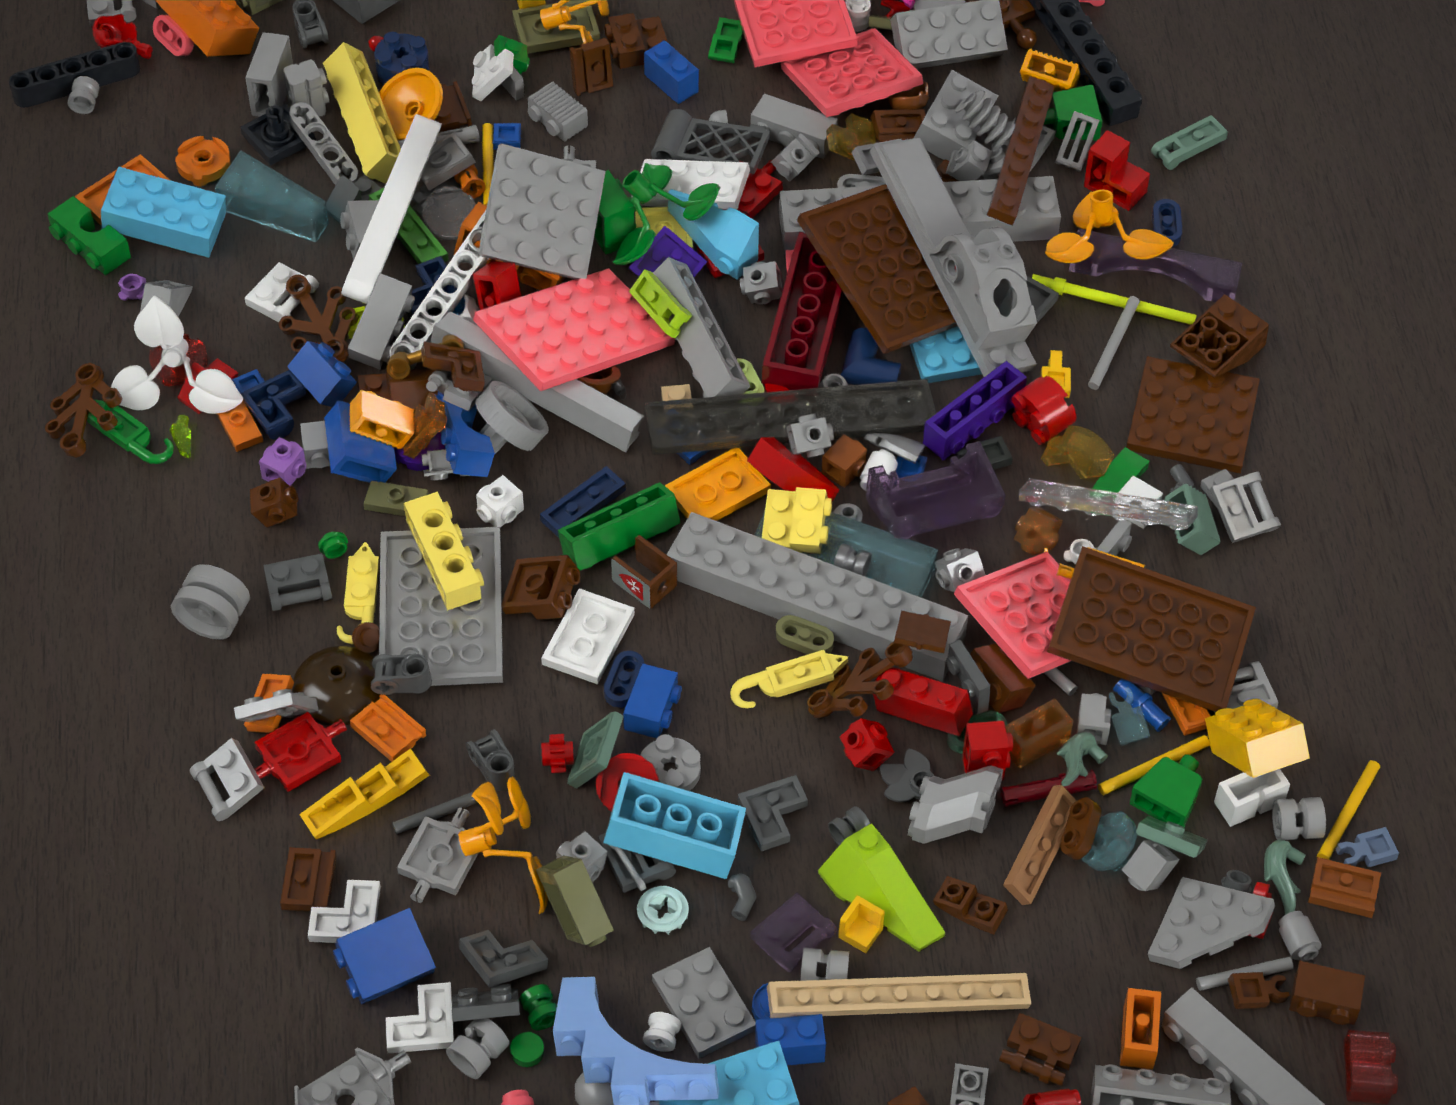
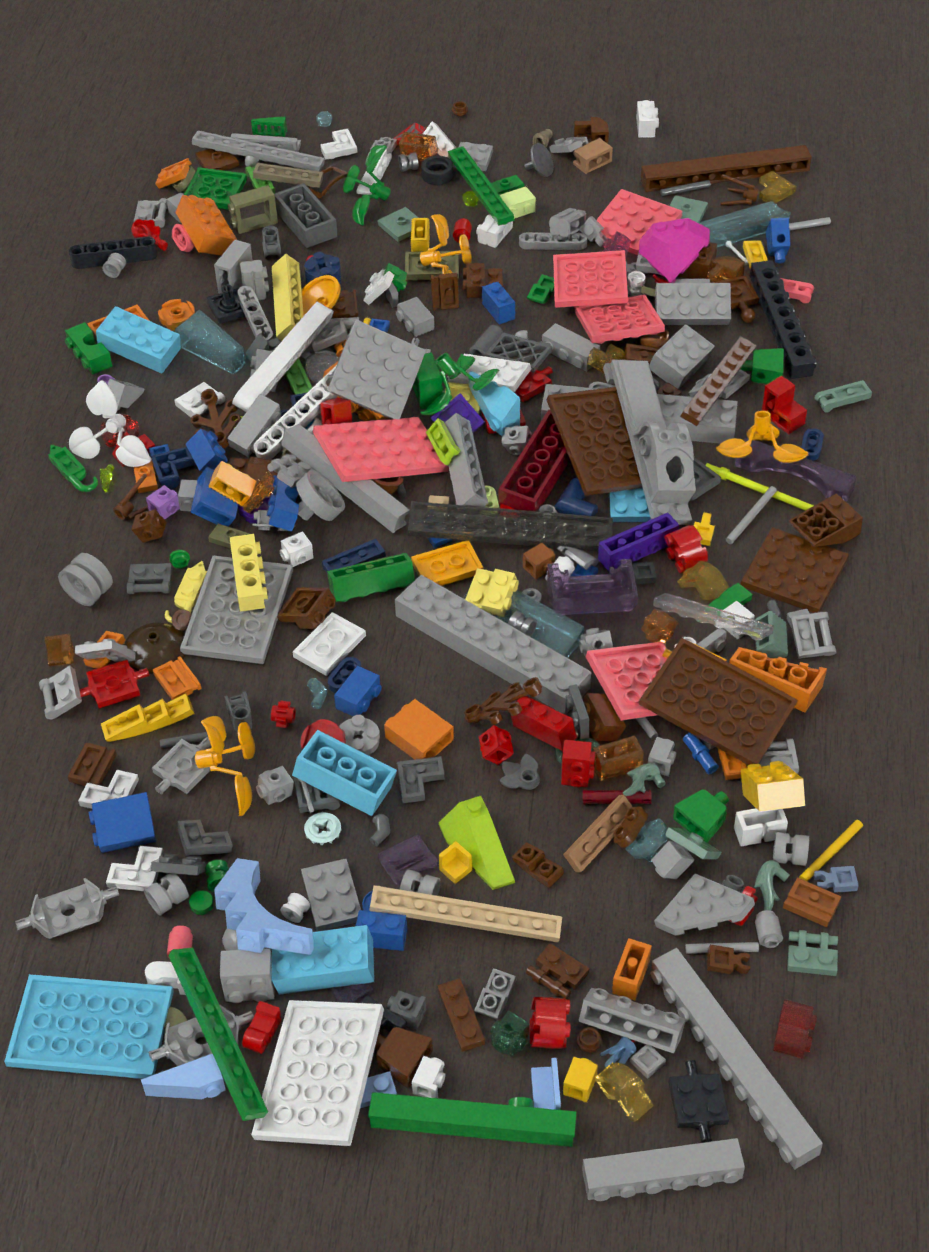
camera: 15 degrees right, 5 degrees down
(87, 379) = (57, 432): reddish brown plant -> none
(203, 714) = (59, 650): none -> clear orange panel
(227, 479) = (125, 507): none -> reddish brown plant
(399, 674) = (193, 645): dark grey piece -> none
(401, 362) = (258, 452): pearl gold bar -> none
(463, 363) = (295, 456): reddish brown plate -> none
(575, 900) = (259, 809): olive window -> none
(591, 707) = (318, 691): none -> clear light blue arm
(595, 749) = (308, 715): sand green plate -> none
(639, 586) = (377, 620): reddish brown piece -> none
(753, 743) = (418, 731): none -> orange brick
(787, 469) = (494, 557): red slope -> none
(790, 676) = (460, 692): light yellow plate -> none
(795, 157) = (564, 366): light grey brick -> none
(800, 439) = (513, 545): light grey brick -> none
(806, 635) = (479, 669): olive plate -> none
(844, 827) = (469, 793): dark grey wheel -> none
(922, 631) = (552, 675): reddish brown piece -> none
(954, 804) = (544, 794): light grey brick -> none
(969, 162) = (682, 384): light grey brick -> none
(987, 117) = (699, 356): light grey piece -> none
(1052, 70) = (757, 335): light orange brick -> none
(1069, 162) = (755, 396): light grey tile -> none
(1130, 721) = (687, 763): clear light blue plate -> none
(1139, 771) = (671, 801): yellow bar -> none
(1235, 576) = (793, 679): none -> orange wedge
(1327, 993) = (776, 971): reddish brown brick -> none
(1377, 963) = (810, 959): none -> sand green plate

